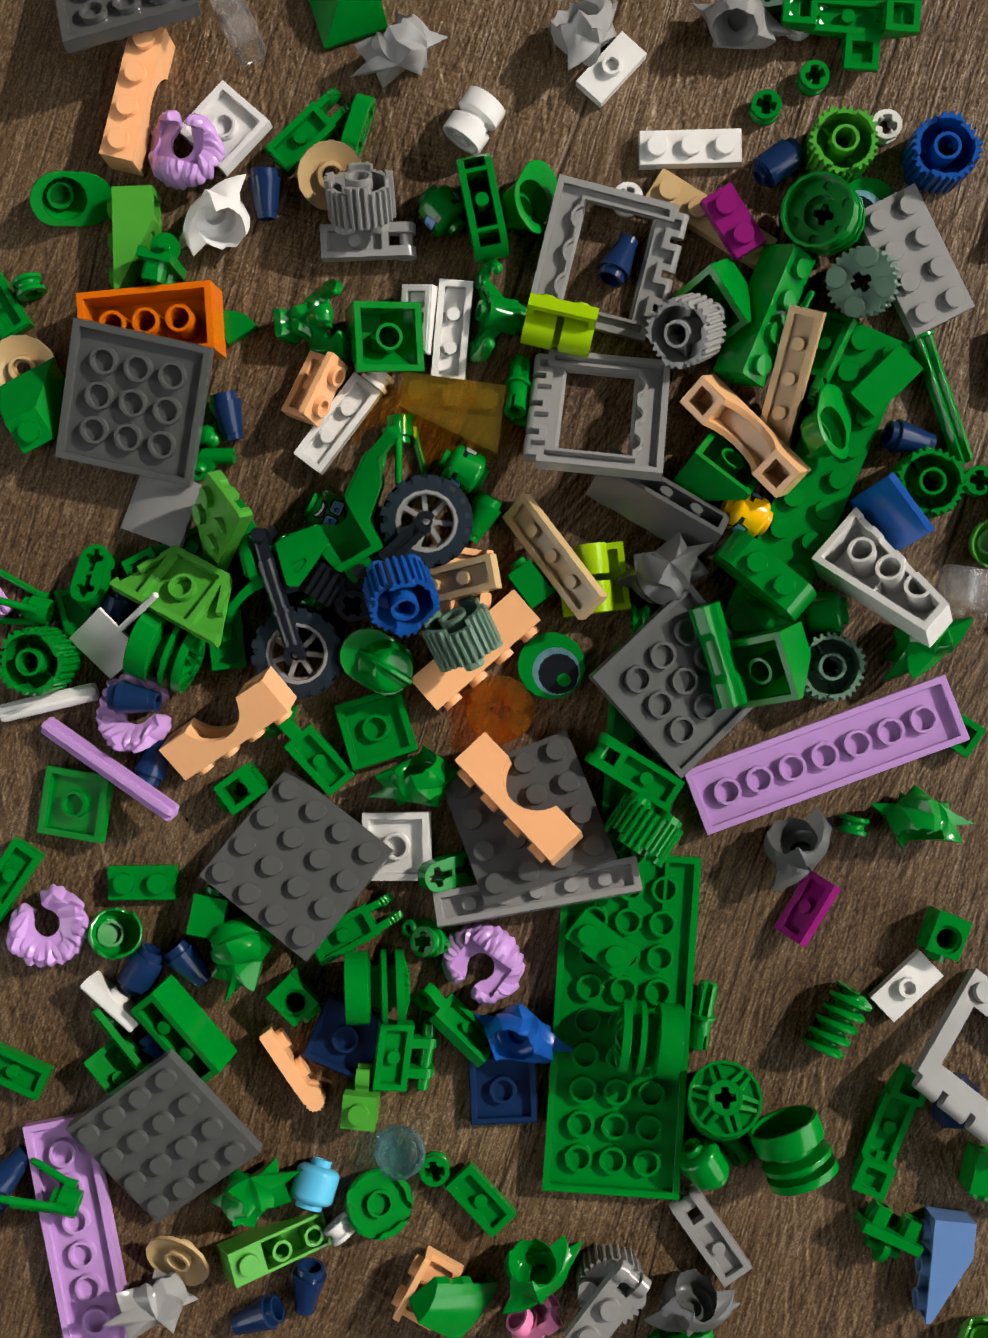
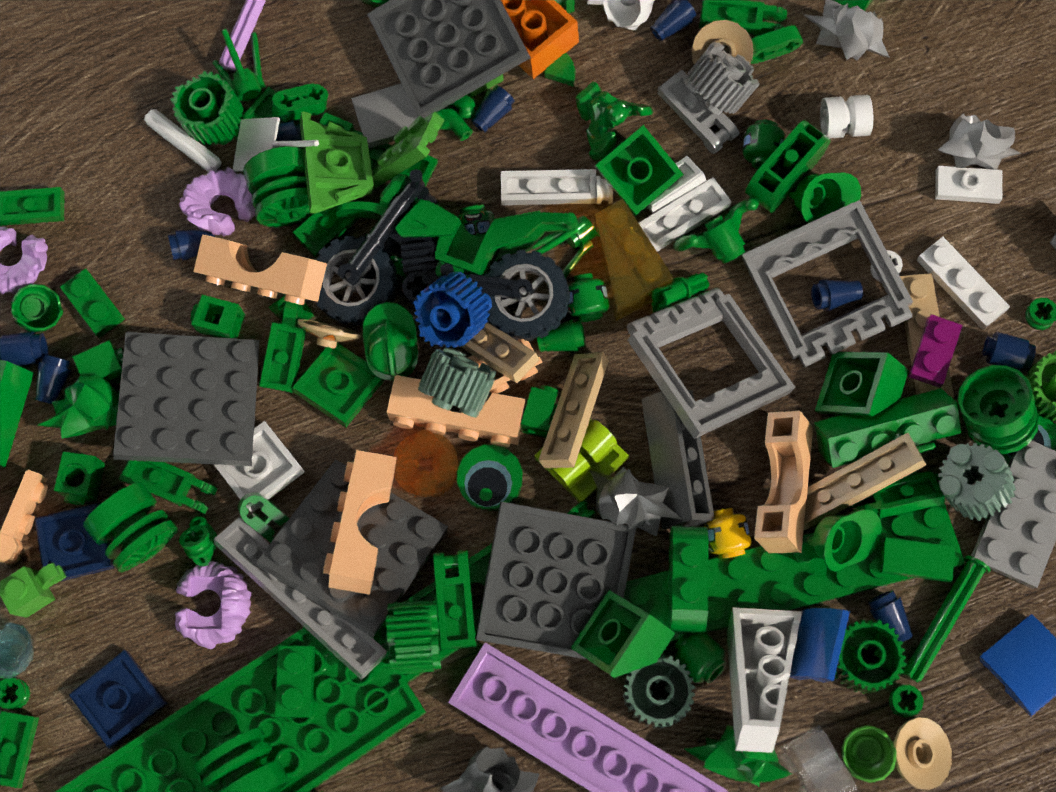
camera: 55 degrees right, 15 degrees down
(75, 804) = (118, 213): green plate -> none
(110, 769) = (162, 215): lavender axle -> none
(132, 698) = (227, 188): dark blue cone -> none
(315, 388) = (561, 151): light nougat bracket -> none
(327, 705) = (328, 334): none -> tan dish
(394, 1052) = (85, 586): green plate -> none
(417, 779) = (320, 441): green hair -> none
(455, 1023) = (146, 620): green plate -> none
(520, 1036) = (171, 674): blue hair -> none
(559, 325) = (749, 281): lime plate -> none
(687, 330) = (825, 376): light grey brick -> none
(717, 471) = (739, 481): green slope -> none
(725, 679) = (583, 611): green axle -> none

